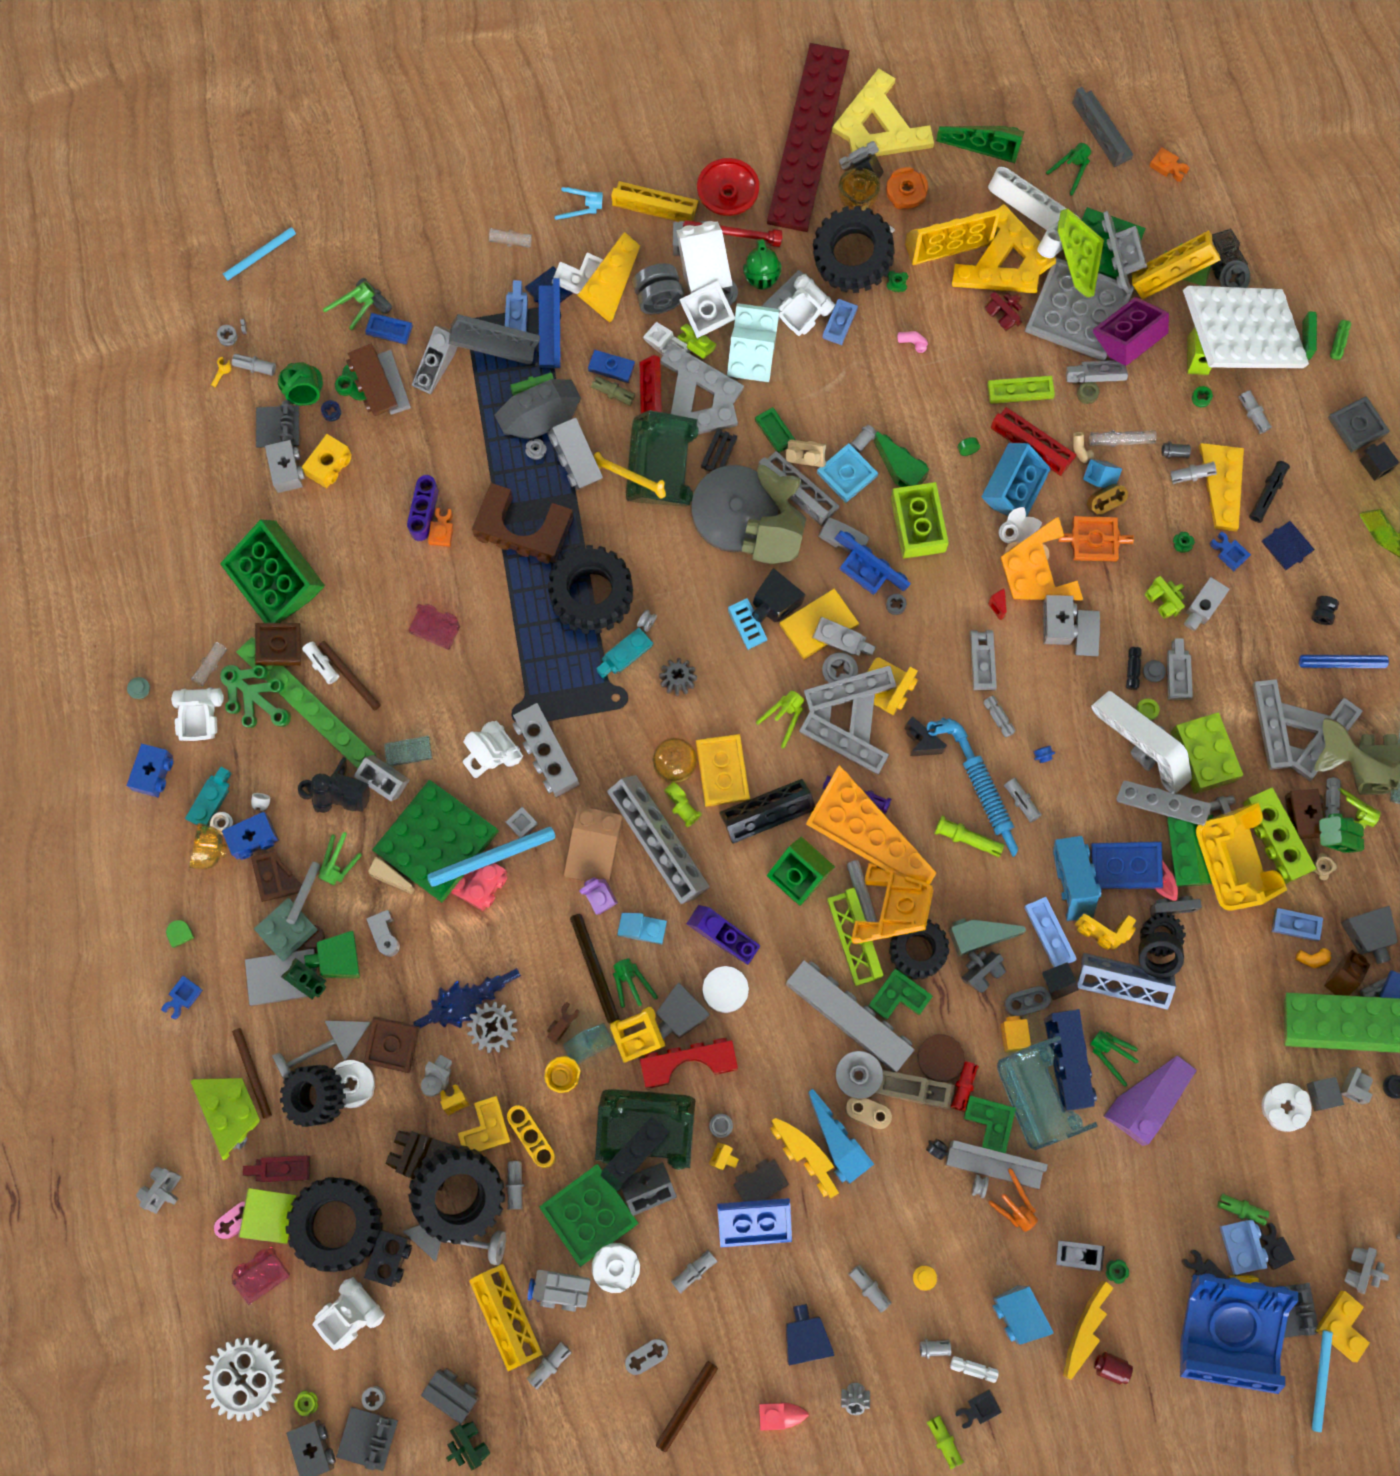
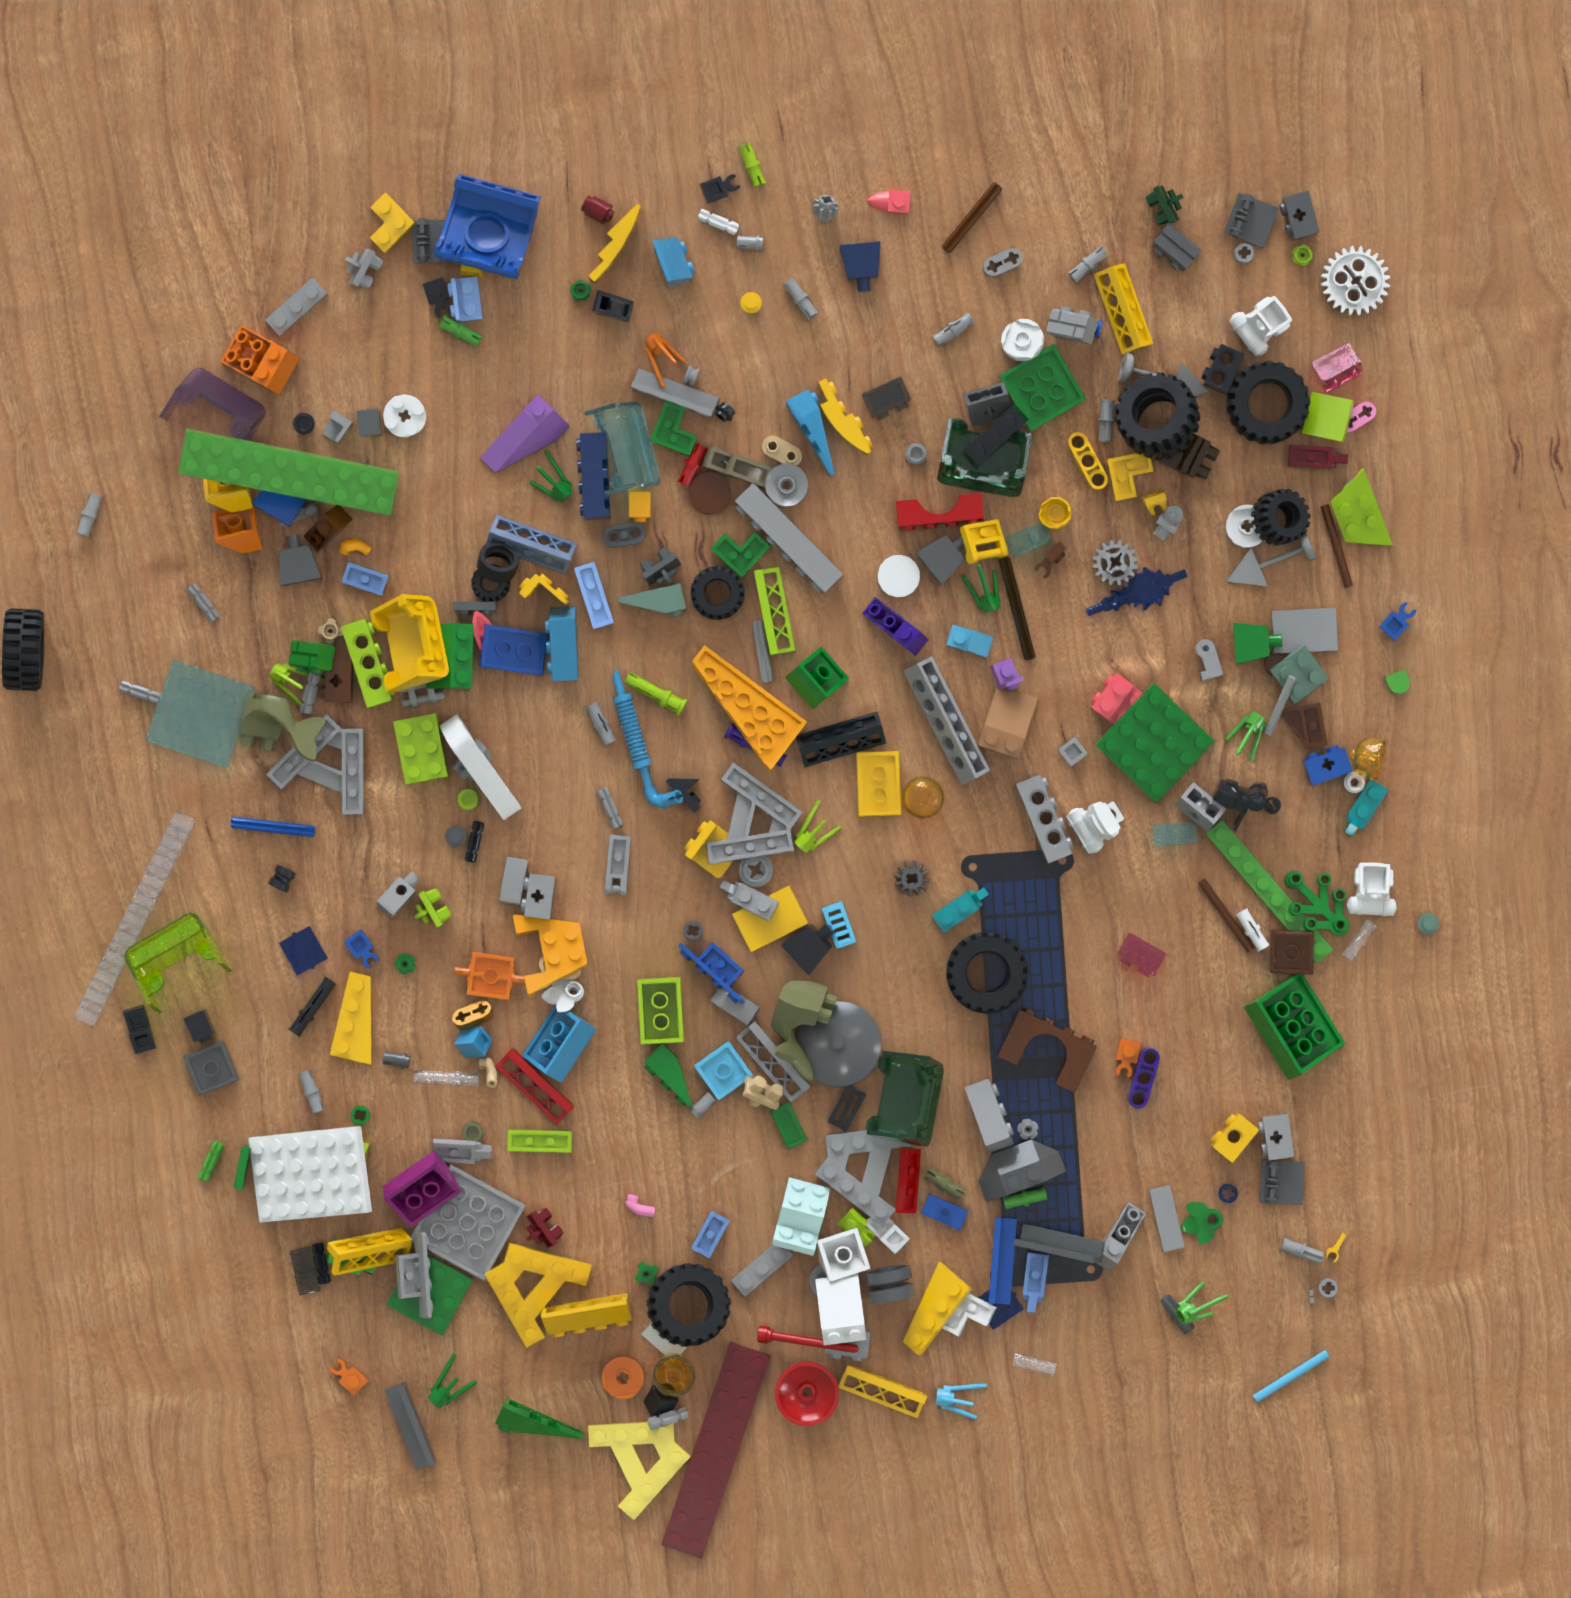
camera: 175 degrees left, 15 degrees up
(146, 760) = (1428, 832): blue brick -> none
(154, 1197) = (1422, 447): light grey hips -> none
(260, 800) = (1316, 799): white hinge -> none
(300, 383) = (1255, 1222): green helmet -> none
(304, 979) = (1281, 622): dark green hips -> none
(372, 380) = (1184, 1214): reddish brown wedge -> none
(384, 873) = (1202, 715): tan slope -> none
(388, 328) = (1164, 1276): blue plate -> none
(391, 1044) = (1208, 557): reddish brown tile -> none
(491, 856) = (1102, 719): medium azure axle -> none
(646, 620) = (935, 938): light grey bush -> none
(658, 487) = (913, 1059): yellow piece -> none
(682, 806) = (919, 747): lime connector -> none
(722, 1157) = (917, 425): yellow tile -> none
(754, 1222) = (895, 364): tile -> none
(762, 265) = (782, 1299): green helmet -> none
(805, 305) = (743, 1251): white piece -> none
(903, 909) = (728, 628): light orange wing -> none
(968, 446) = (600, 1085): green tile -> none
(998, 604) = (594, 919): red slope -> none
(1032, 204) = (487, 1332): white beam -> none
(1044, 754) = (573, 765): blue plate -> none
(1060, 981) = (592, 549): black panel -> none
(1082, 251) = (461, 1274): lime plate -> none
(1164, 802) = (472, 701): light grey bracket -> none
(1179, 672) = (432, 832): light grey hinge -> none
(1193, 472) = (384, 1032): light grey pin -> none
(1207, 1267) = (500, 283): black plate -> none
(1235, 267) = (298, 1238): dark grey gear -> none
(1322, 1379) = (418, 180): medium azure bar -> none

